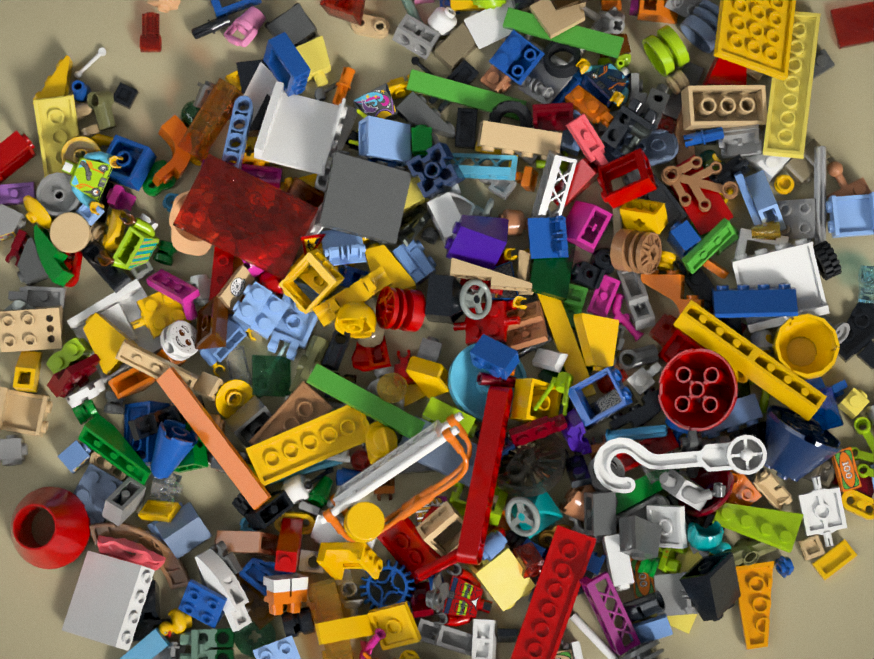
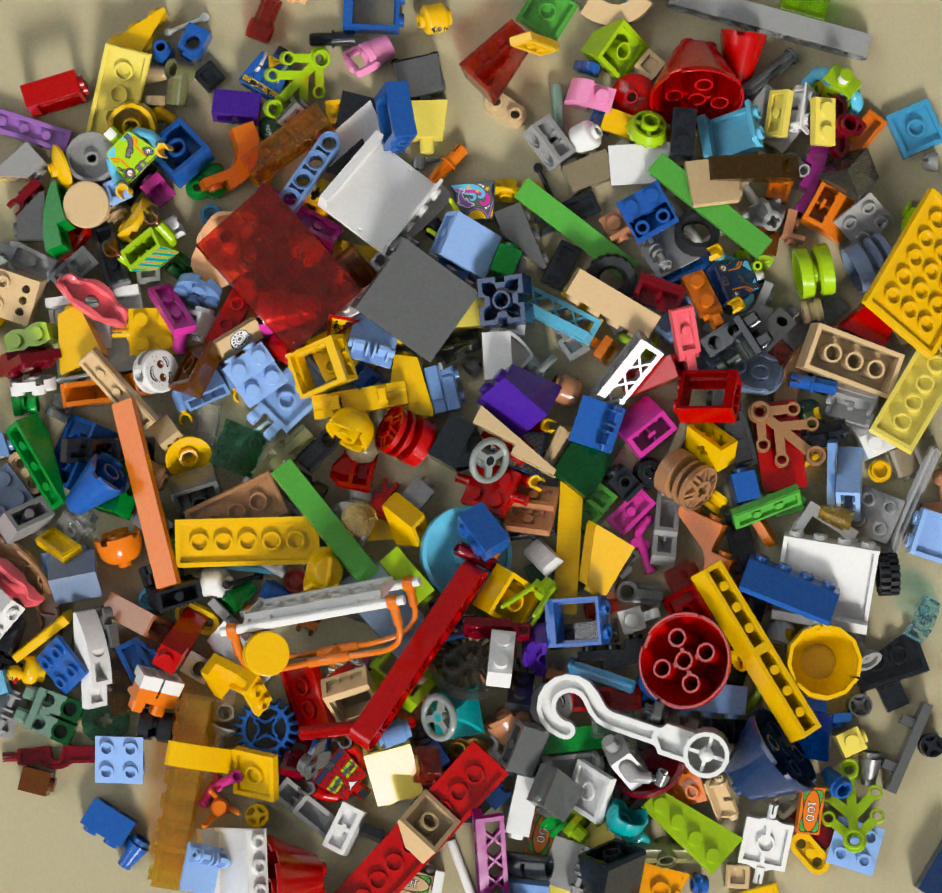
camera: 20 degrees right, 5 degrees up
(80, 288) = (78, 263): none -> dark grey hinge
(92, 300) = (78, 289): none -> coral piece
(98, 66) = (198, 33): none -> blue brick
(156, 109) = (236, 107): none -> dark purple hinge
(172, 75) = (254, 79): none -> torso
(177, 587) = (43, 635): none -> yellow tile
(187, 264) = (197, 291): none -> medium blue plate
(198, 67) = (298, 77): none -> lime plant
(209, 492) = (119, 546): none -> orange cylinder
(549, 608) = (426, 826): none -> tan slope
(551, 449) = (500, 658): none -> white brick
(631, 23) = (789, 225): none -> nougat bracket
(851, 371) = (862, 702): none -> dark grey wheel
(857, 439) = (838, 784): none -> blue cone

